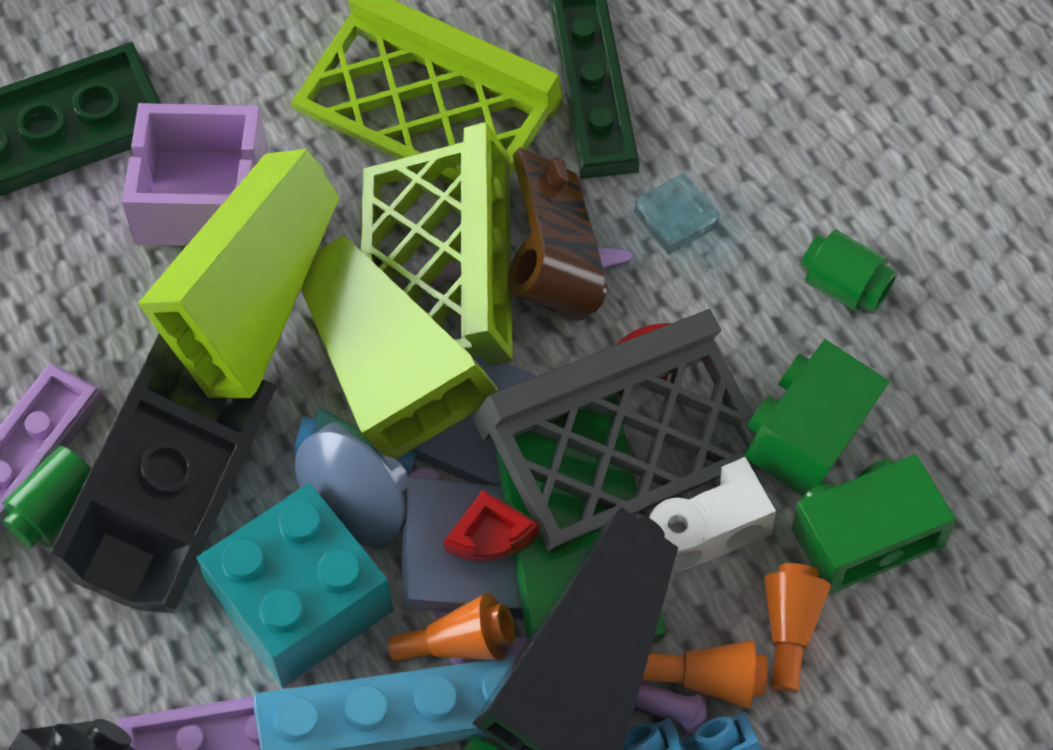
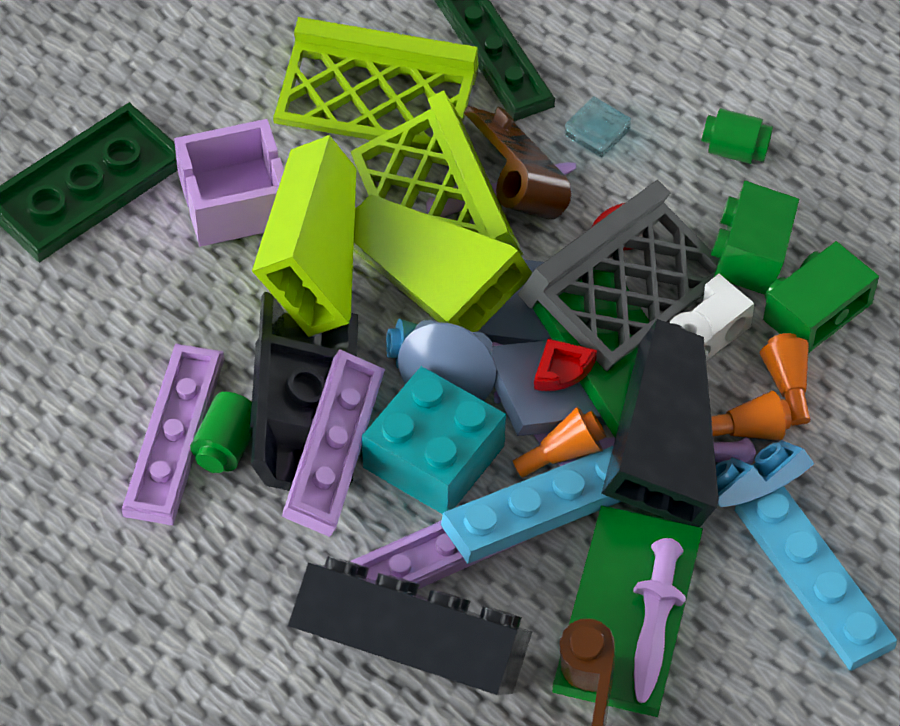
camera: 20 degrees left, 5 degrees down
(164, 555) = (333, 443): none -> lavender tile

